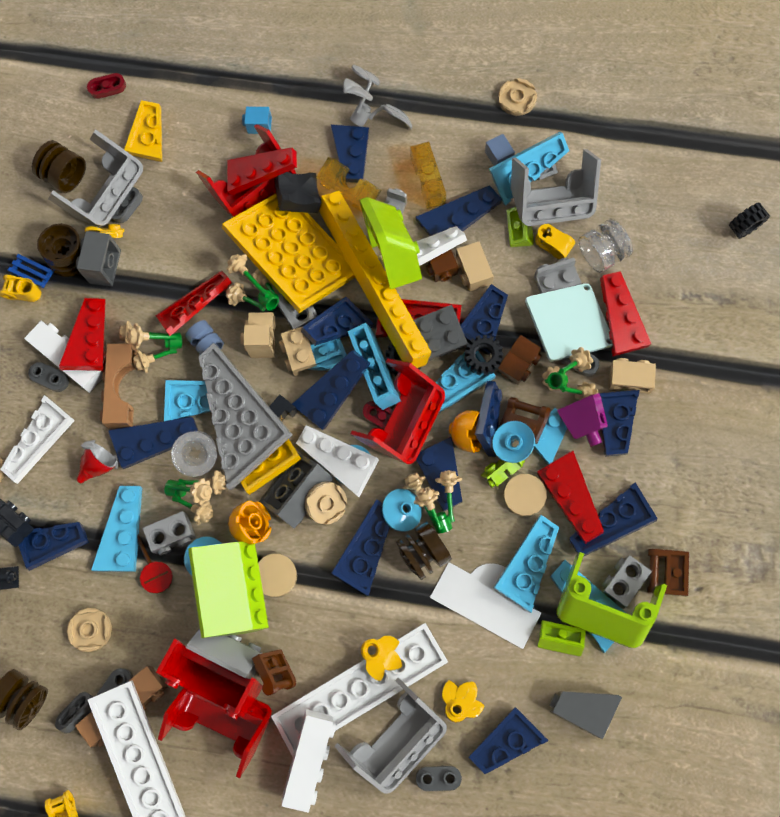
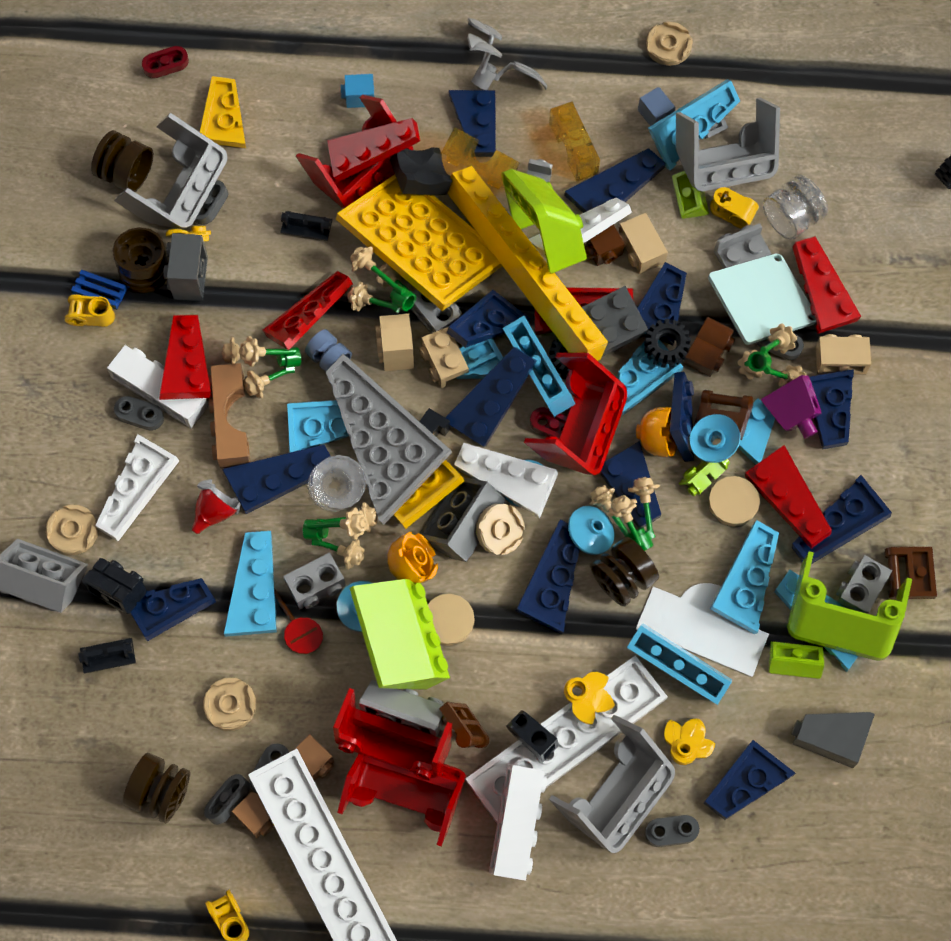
camera: 15 degrees left, 5 degrees down
(201, 230) = (305, 225): none -> black hinge
(329, 687) = (533, 735): none -> black leg
(461, 635) = (679, 663): none -> medium azure brick

